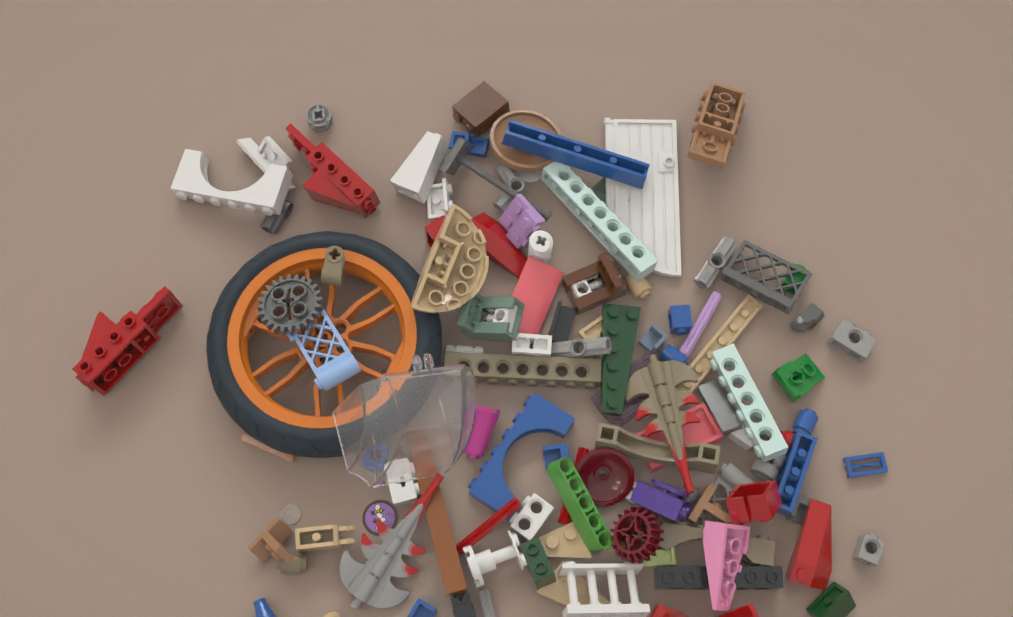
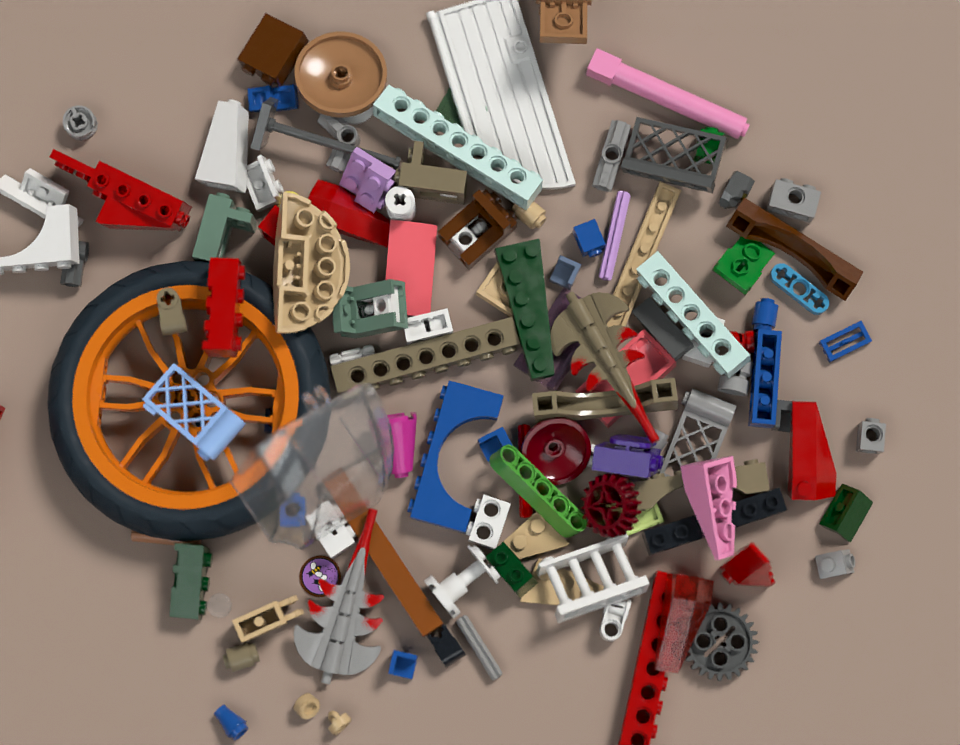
camera: 15 degrees left, 10 degrees up
(271, 541) = (209, 643): medium nougat bracket -> none
(274, 486) = (190, 581): none -> dark green wedge
(309, 302) = (157, 364): dark grey gear -> none
(375, 276) = (224, 308): none -> red wedge
(394, 219) = (217, 225): none -> sand green brick
(489, 524) = (444, 546): red axle -> none
(561, 323) = (454, 287): black panel -> none
(569, 237) = (431, 181): none -> dark tan brick
(575, 154) = (406, 75): blue tile -> none
(592, 347) = (496, 307): light grey piece -> none
(672, 353) = (592, 284): blue brick -> none
(712, 509) = (687, 448): medium nougat bracket -> none
(732, 199) = (611, 71): none -> bright pink brick
(753, 502) = (728, 428): red piece -> none
(846, 412) = (817, 294): none -> dark azure beam
(866, 400) = (831, 270): none -> reddish brown arch

